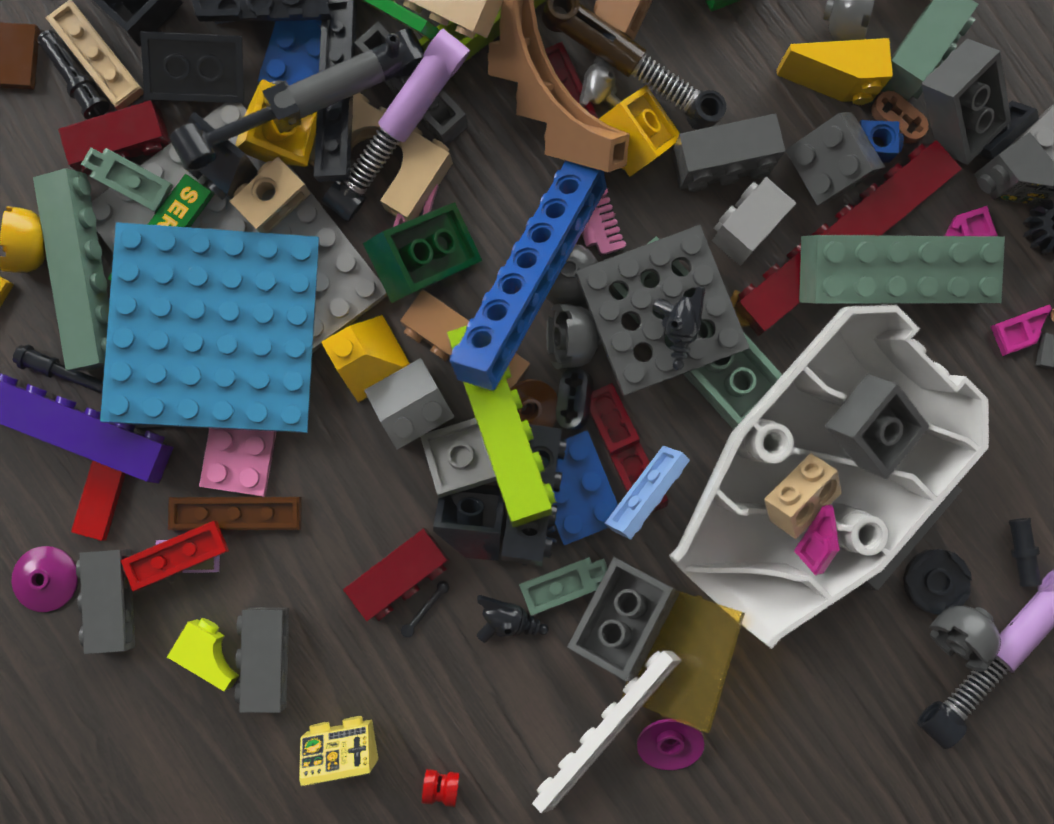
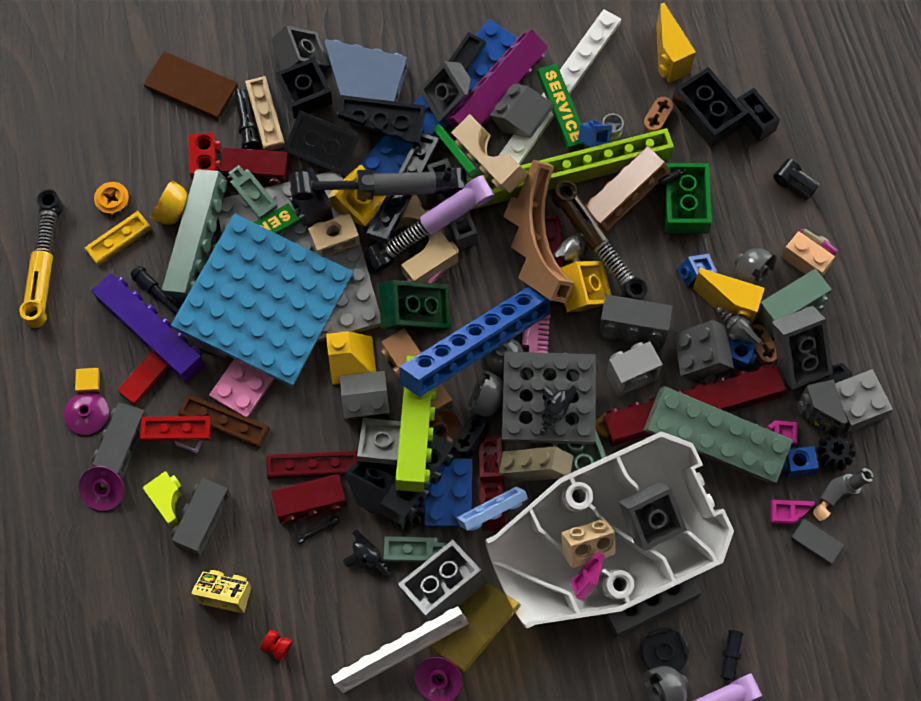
camera: 25 degrees right, 15 degrees down
(24, 533) = (87, 380): none -> yellow tile
(33, 156) = (199, 157): none -> red brick
(111, 677) = (94, 494): none -> magenta dish
(378, 524) = (309, 464): none -> dark red tile
(682, 409) = (535, 464): none -> dark tan brick
(772, 46) = (690, 267): none -> blue bracket
(871, 107) = (738, 327): none -> dark grey piece
(1025, 256) = (807, 456): none -> blue brick

